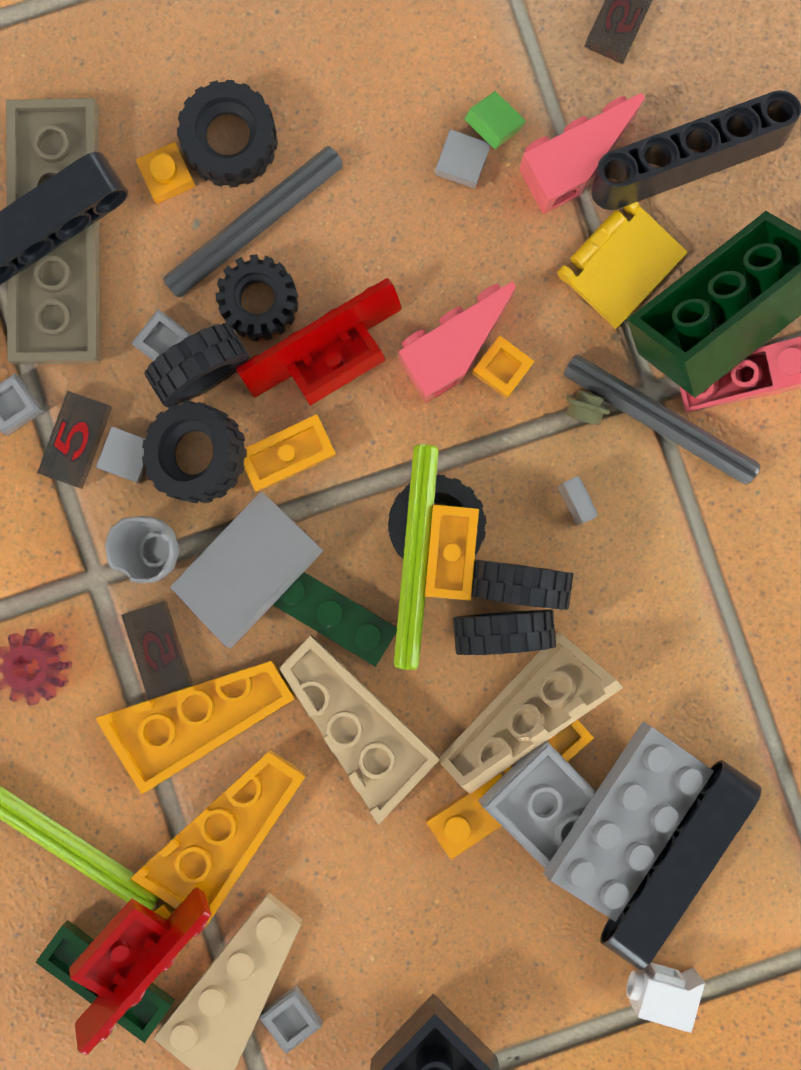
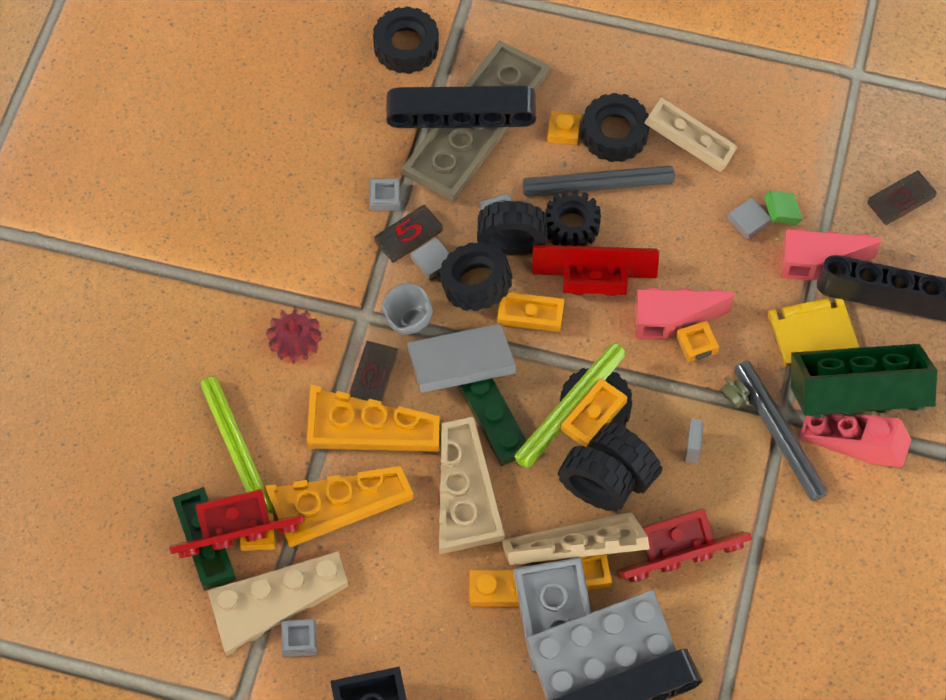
camera: 35 degrees right, 25 degrees down
(326, 88) = (691, 135): none -> tan plate
(642, 636) = (680, 540): none -> red bracket

